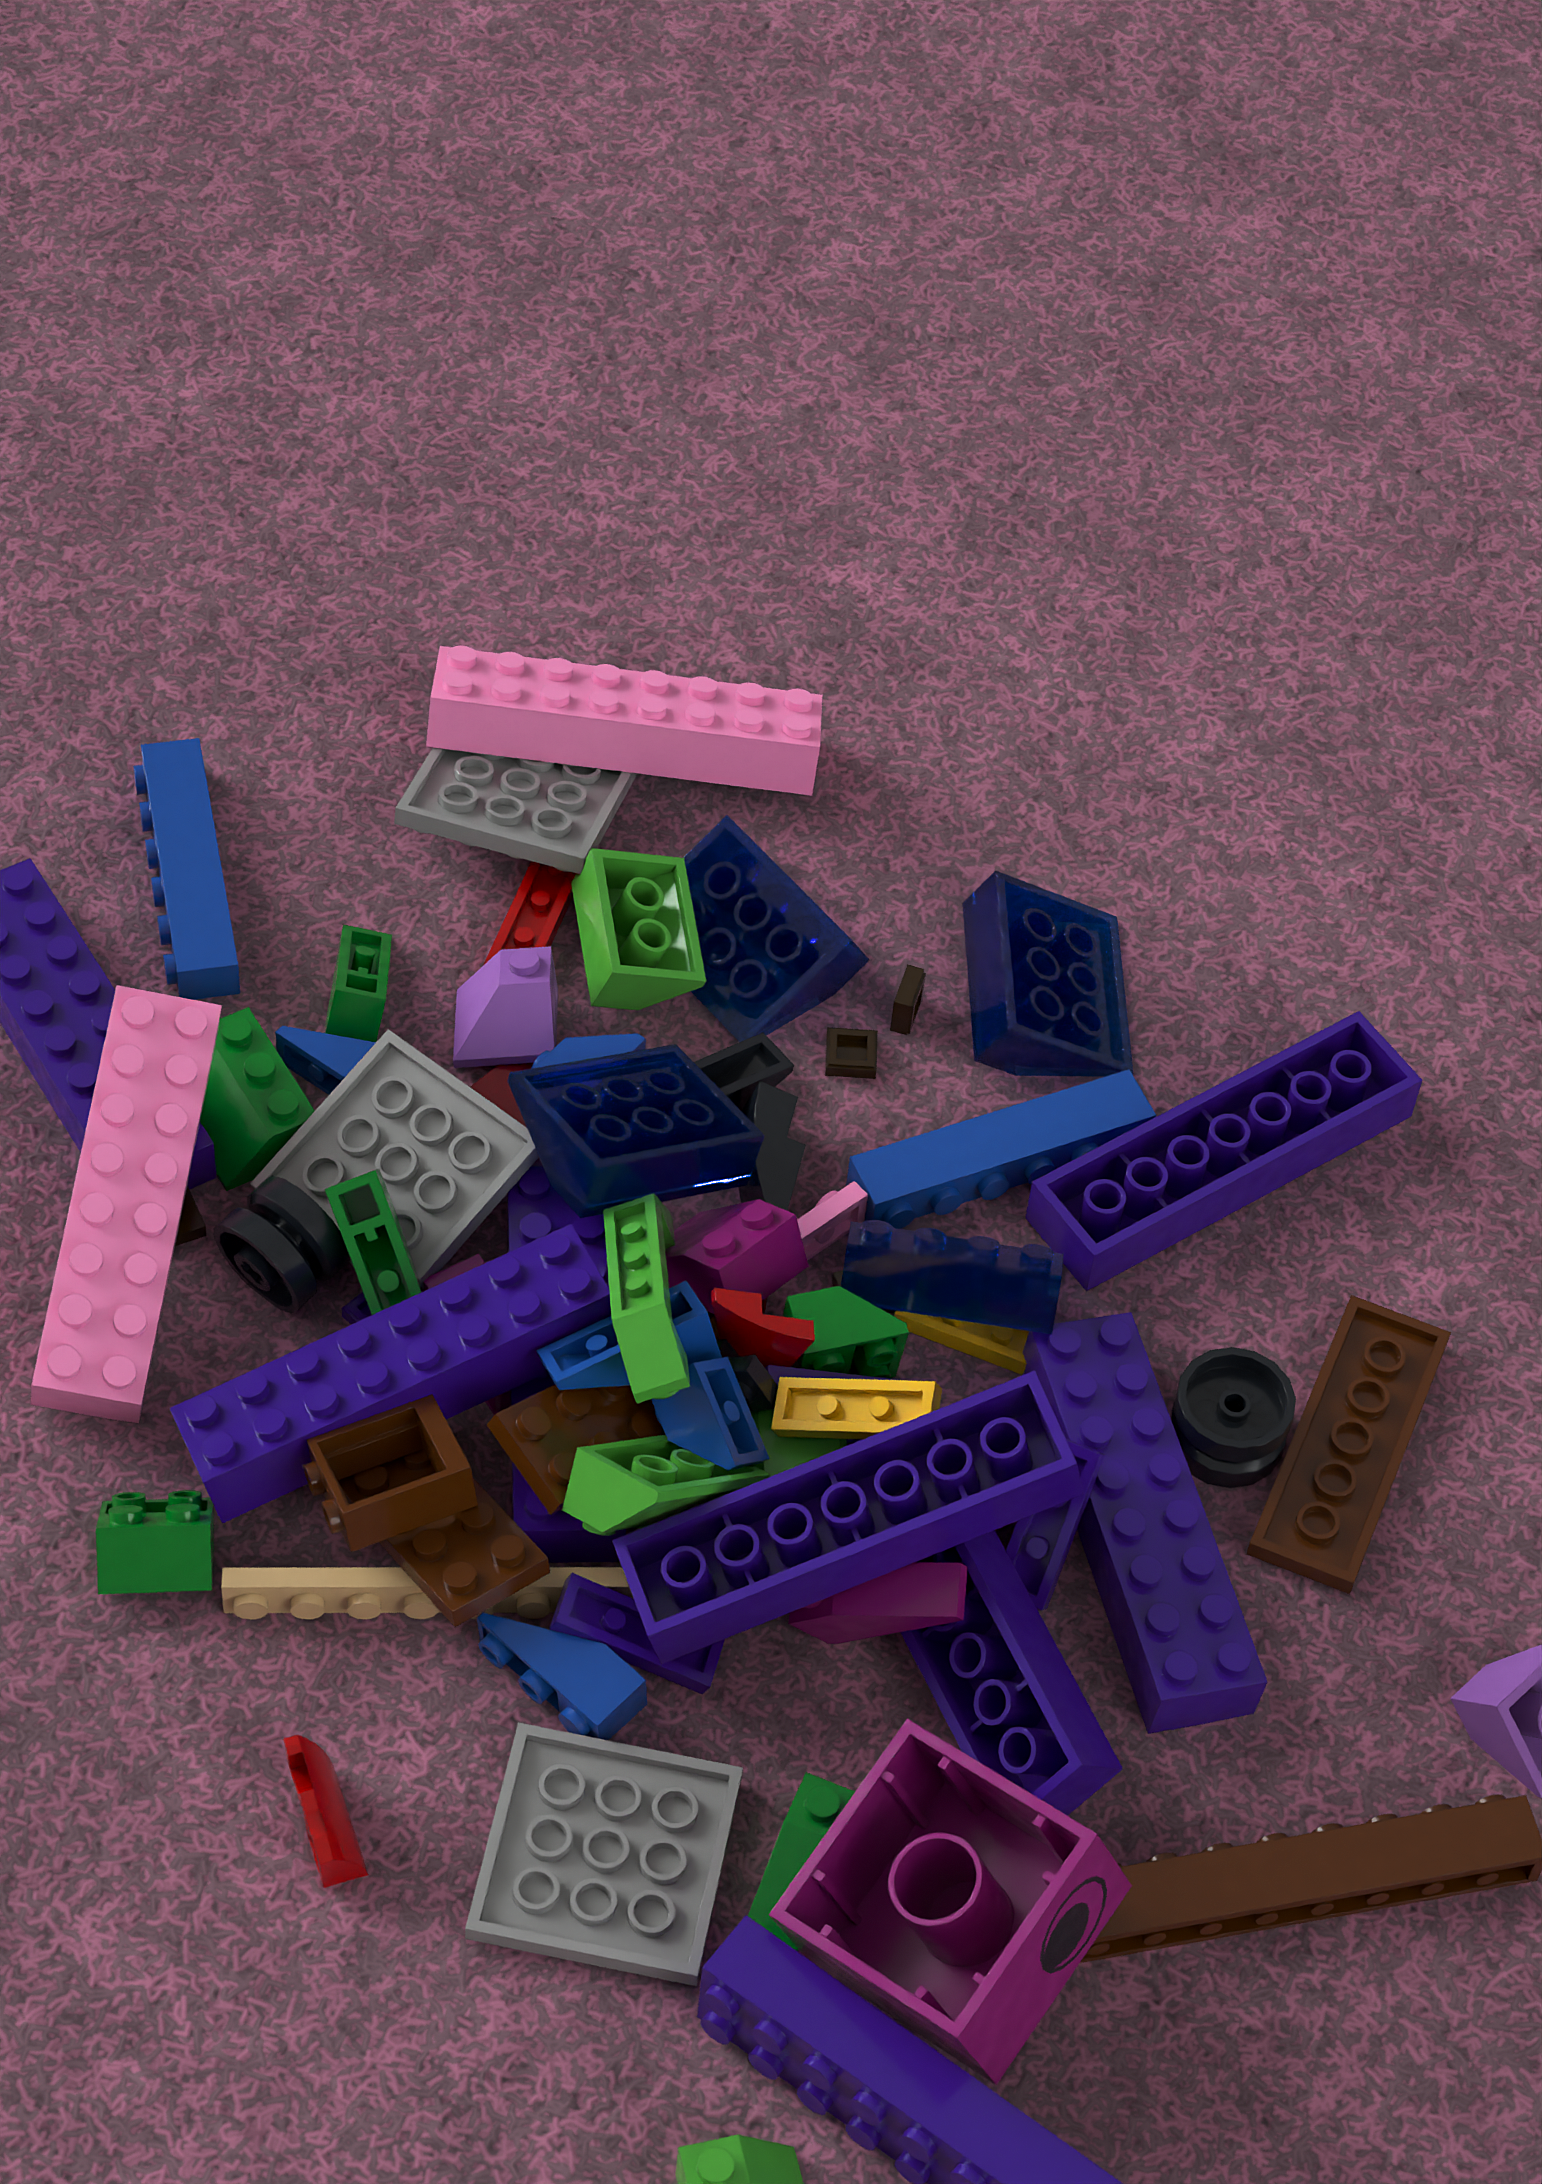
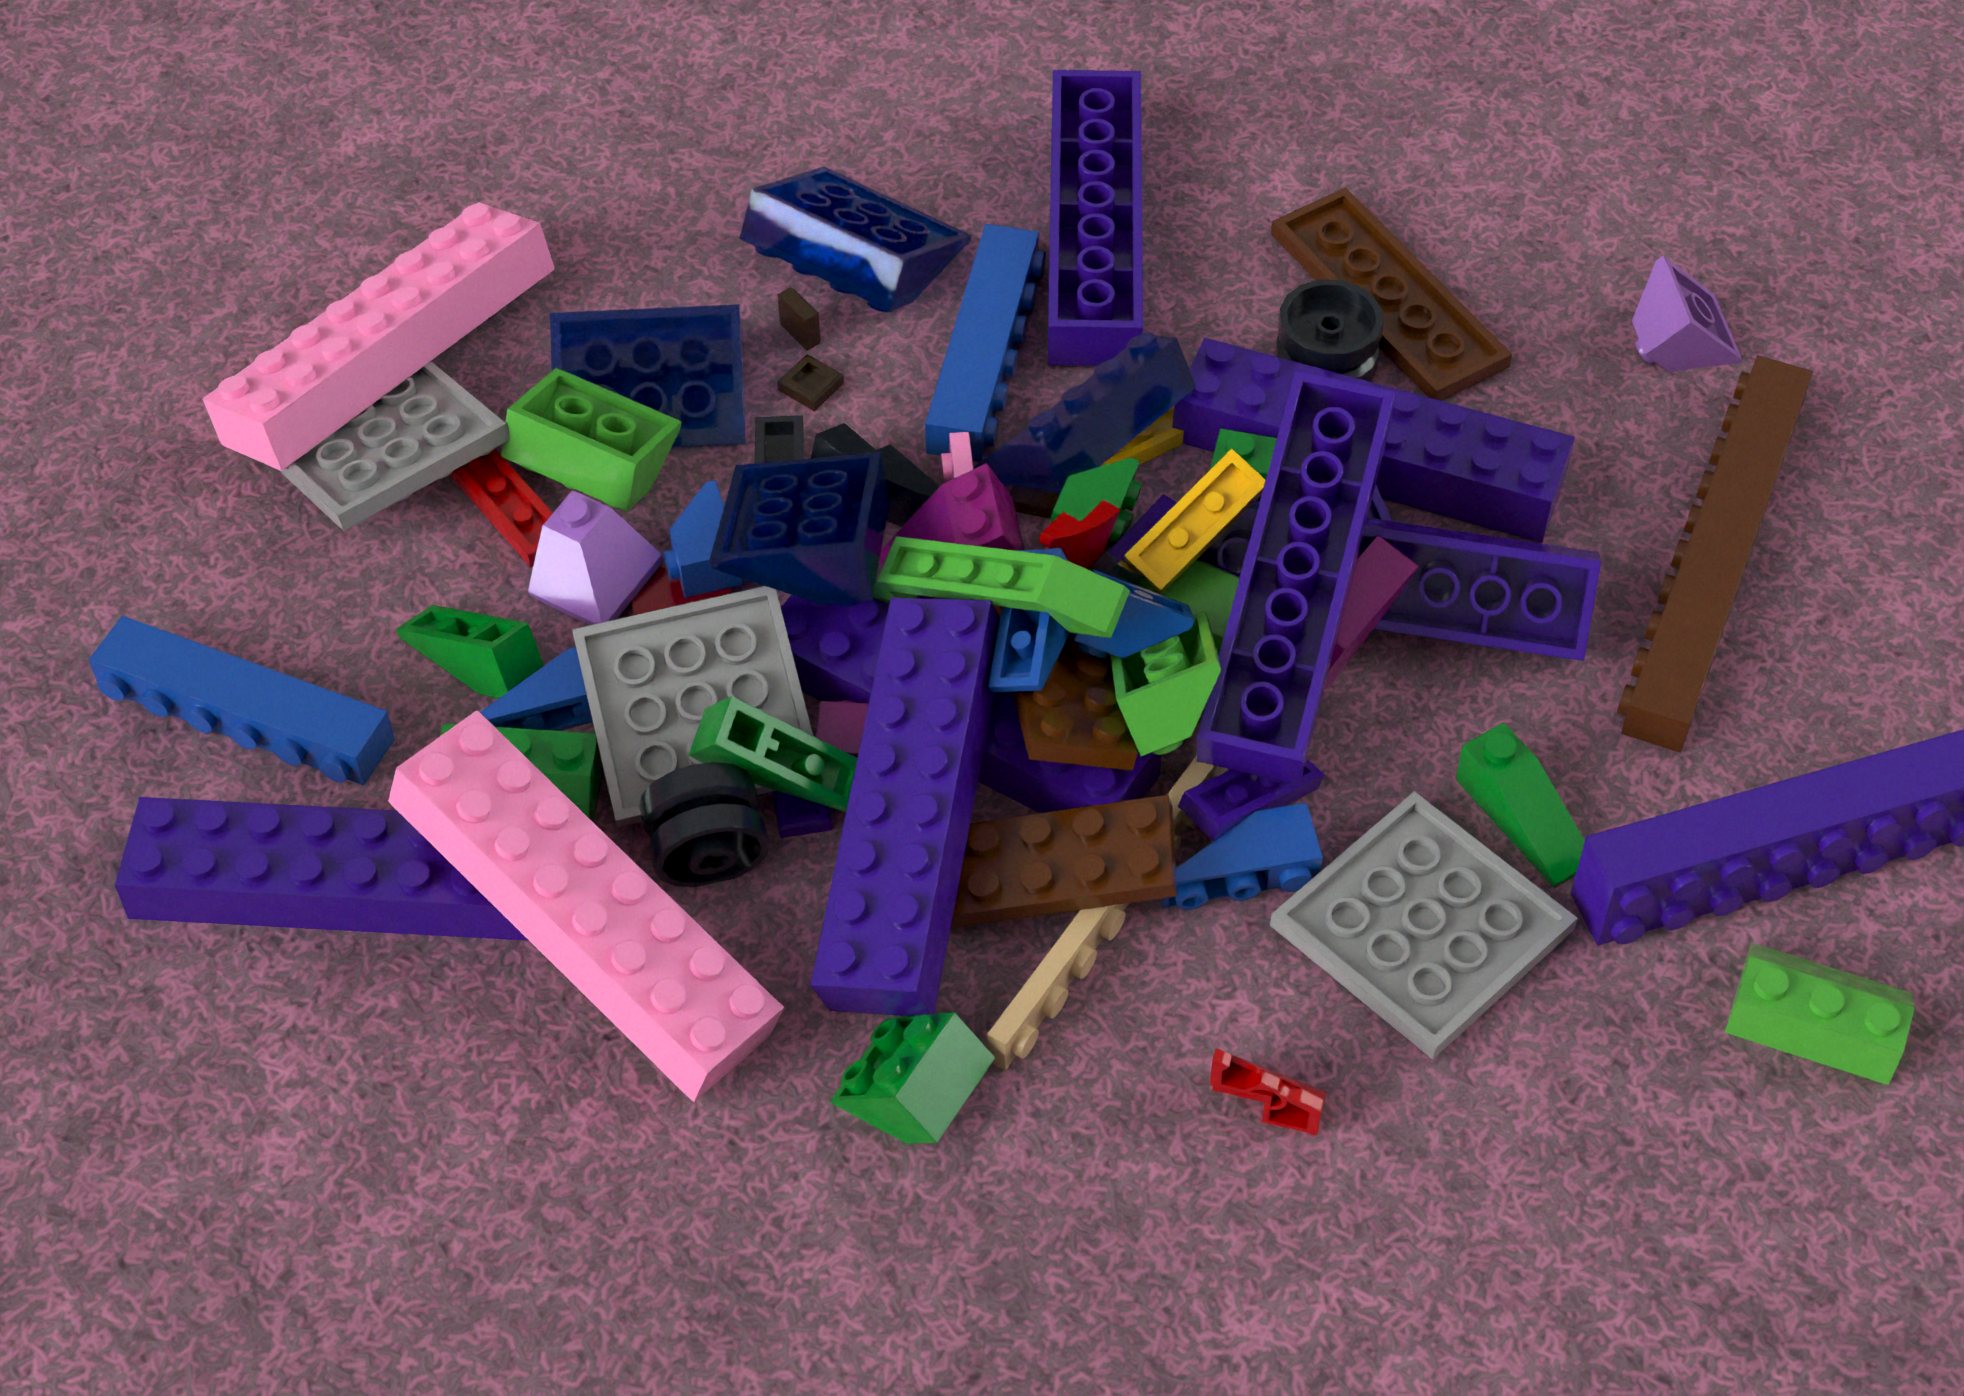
camera: 50 degrees left, 0 degrees up
(379, 1441) = (1008, 810): reddish brown window -> none
(952, 1899) = (1669, 693): magenta brick -> none

